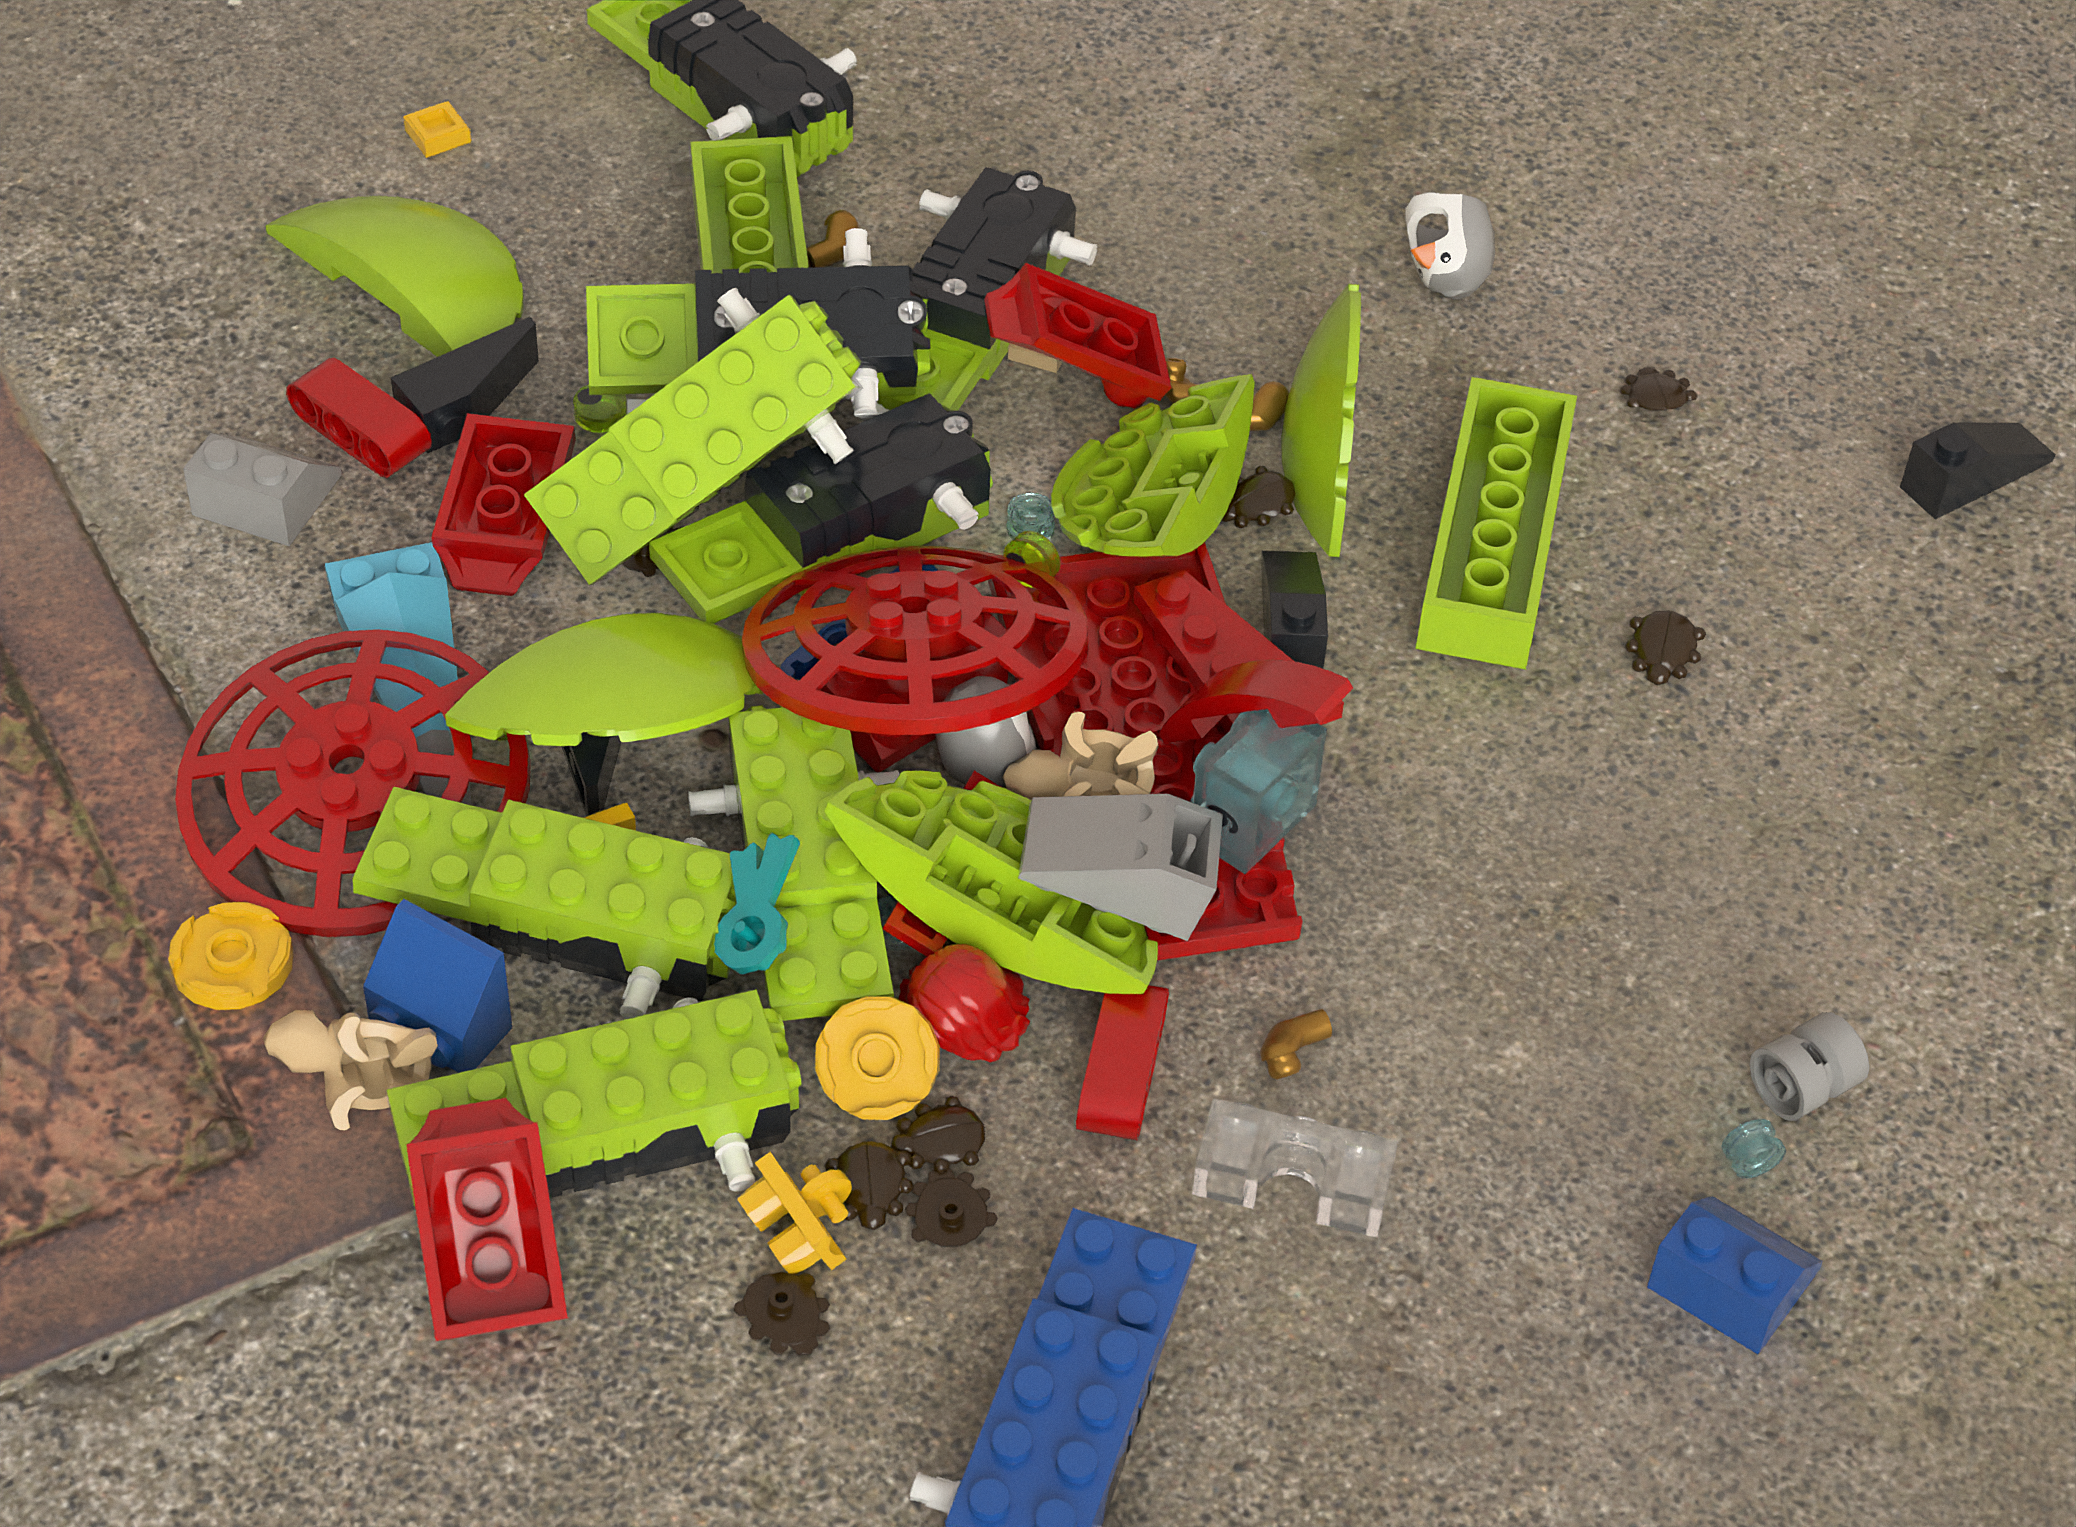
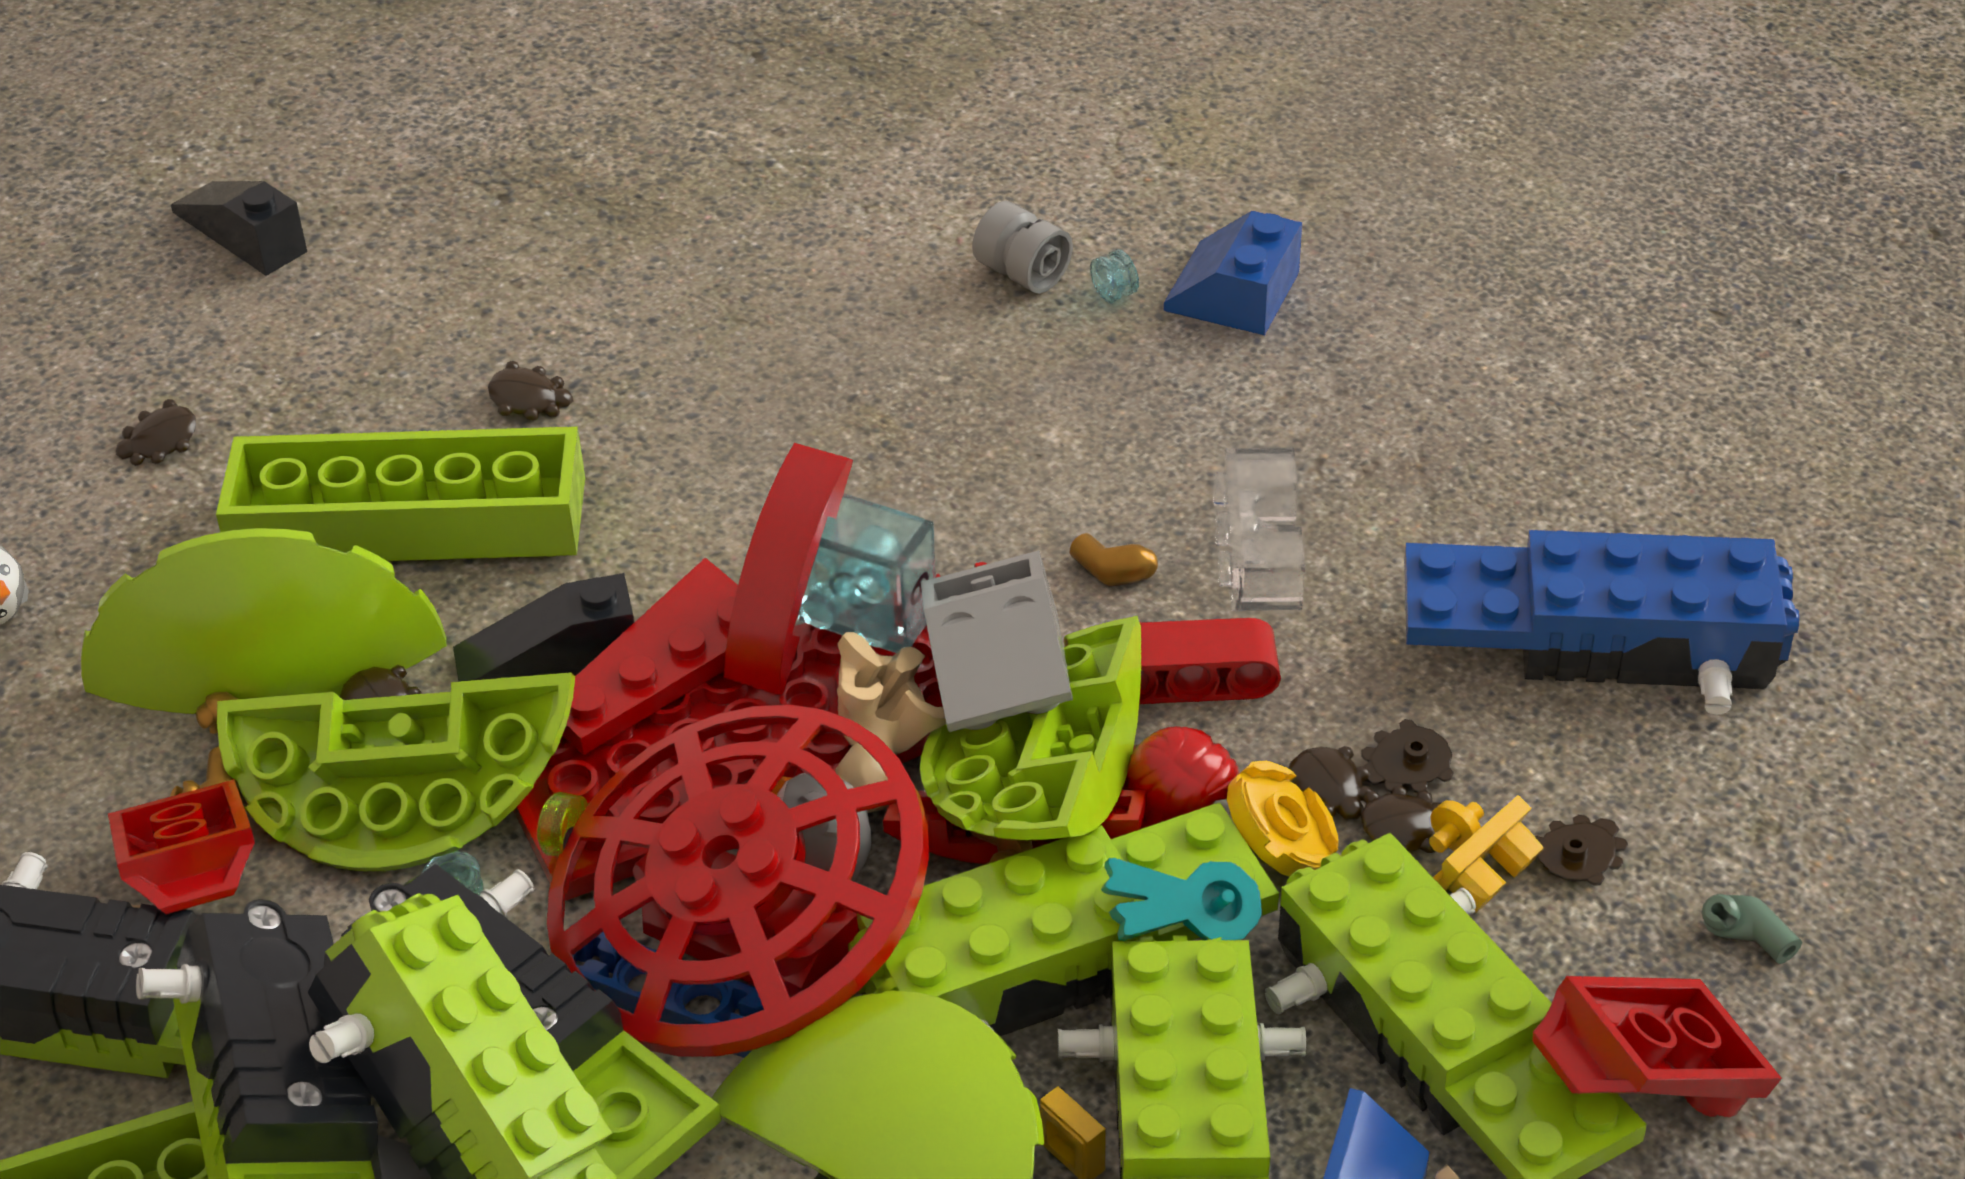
camera: 100 degrees left, 5 degrees down
(643, 1416) = (1750, 920): none -> sand green arm

